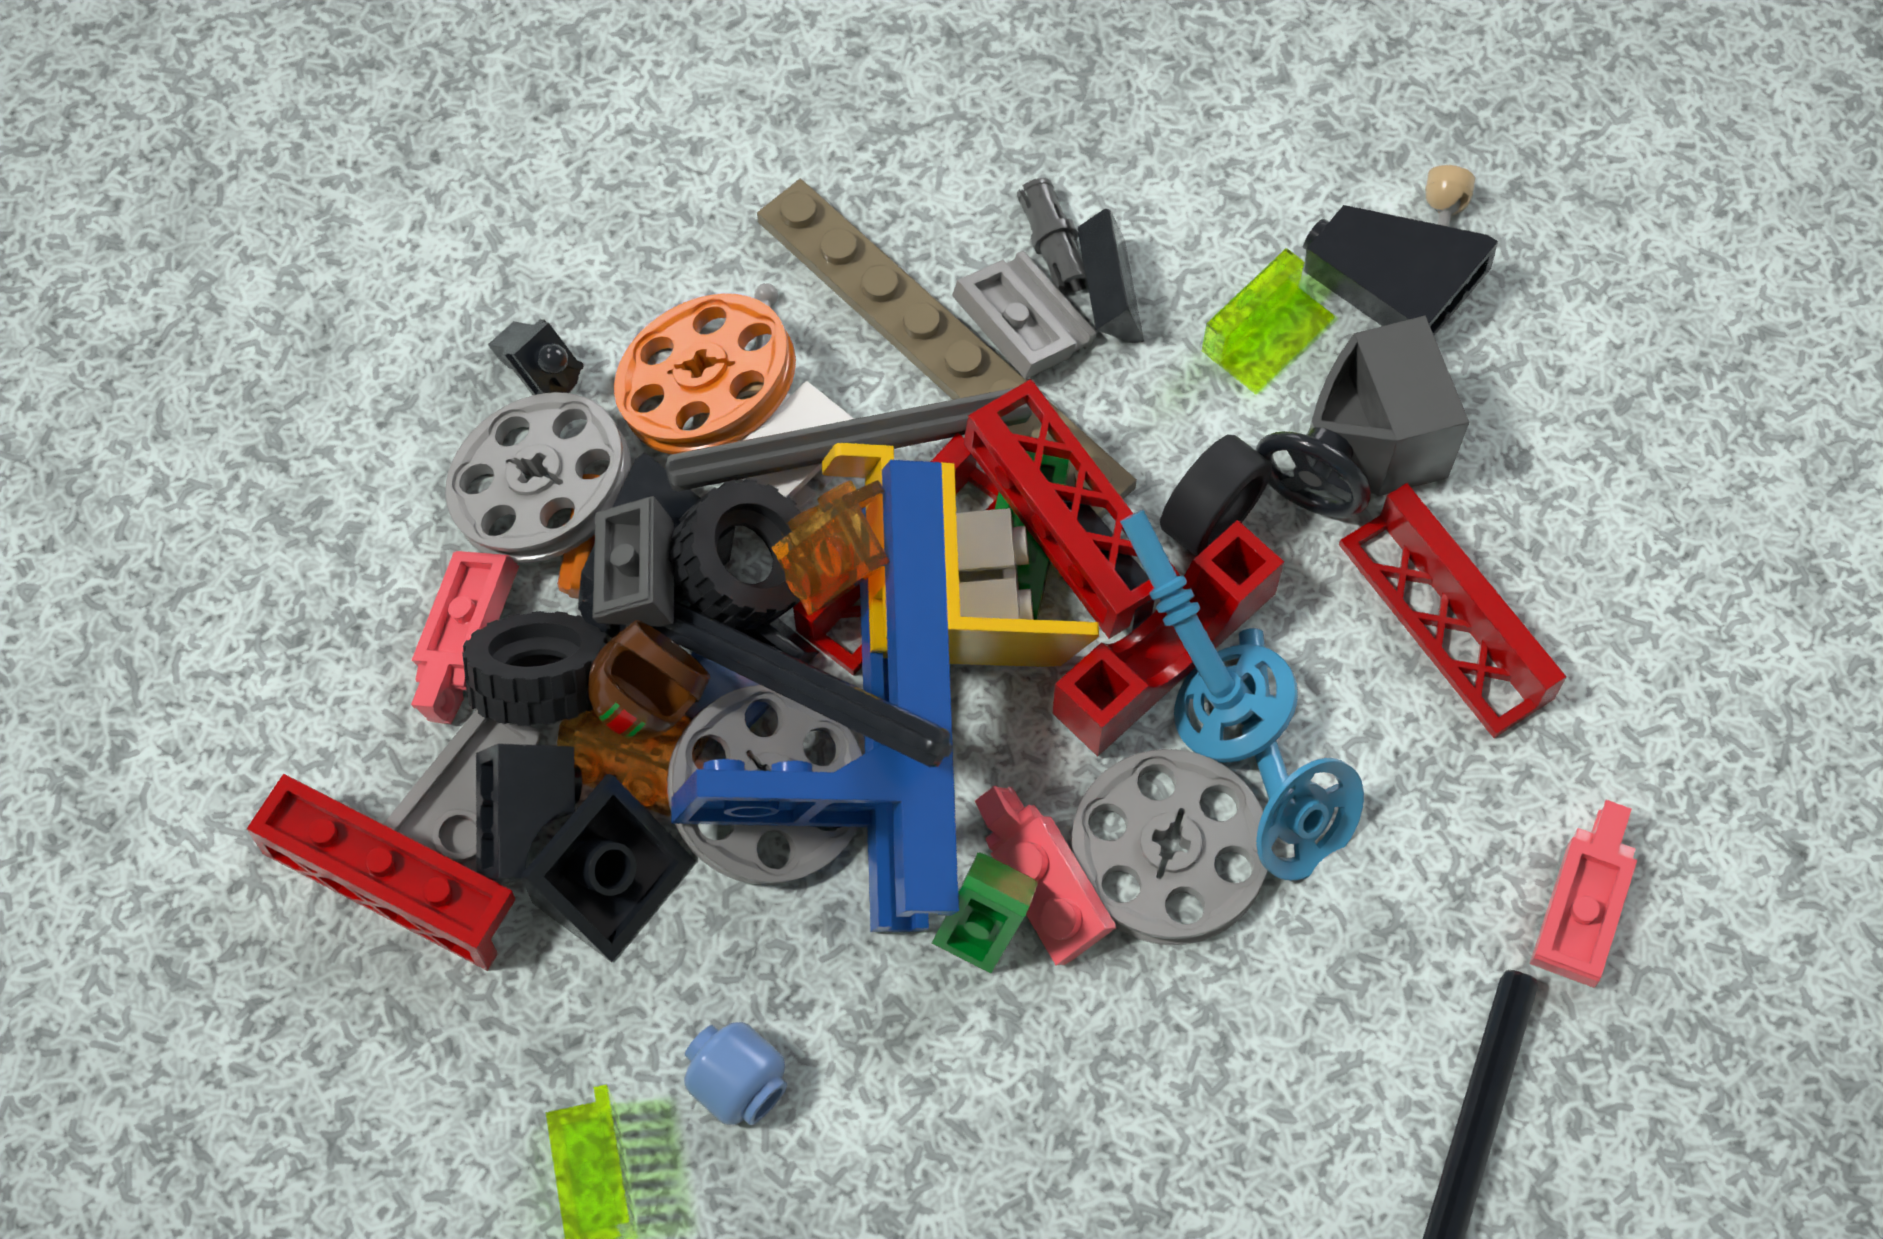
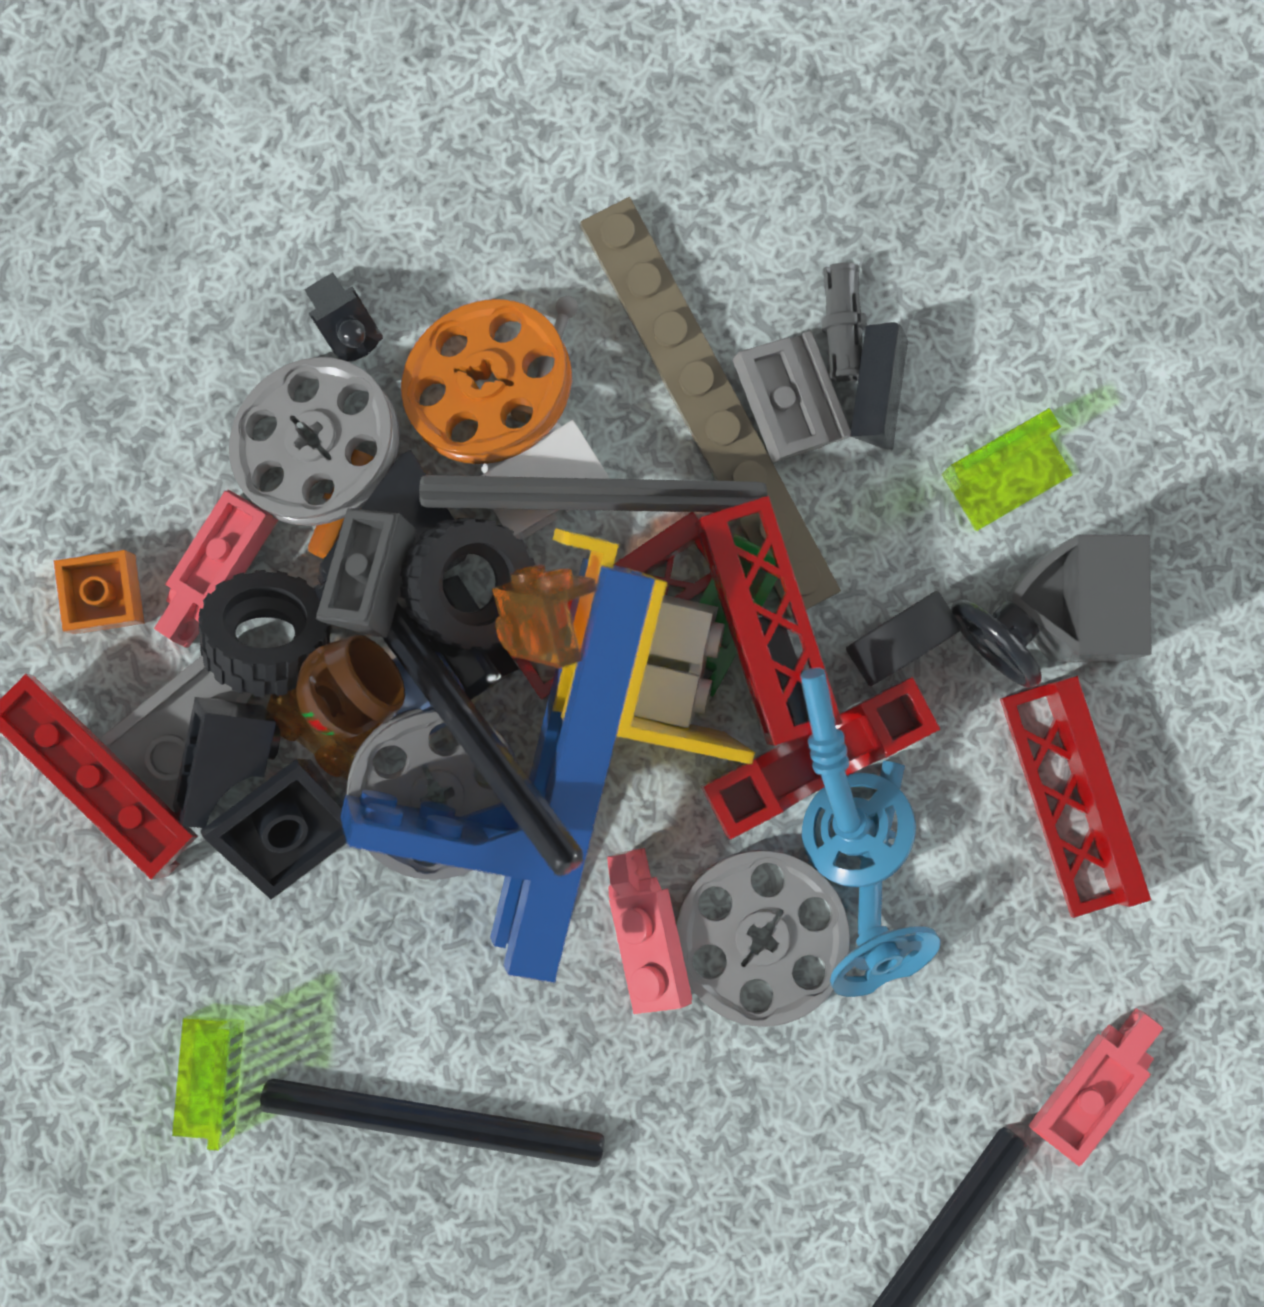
camera: 15 degrees right, 20 degrees up
(339, 689) = (98, 592): none -> orange piece
(734, 1073) = (342, 1034): medium blue head -> none
(863, 1149) = (432, 1122): none -> black axle
(990, 911) = (595, 961): green slope -> none
(1397, 264) = (1145, 451): black slope -> none
(1449, 190) = (1219, 383): tan hinge -> none

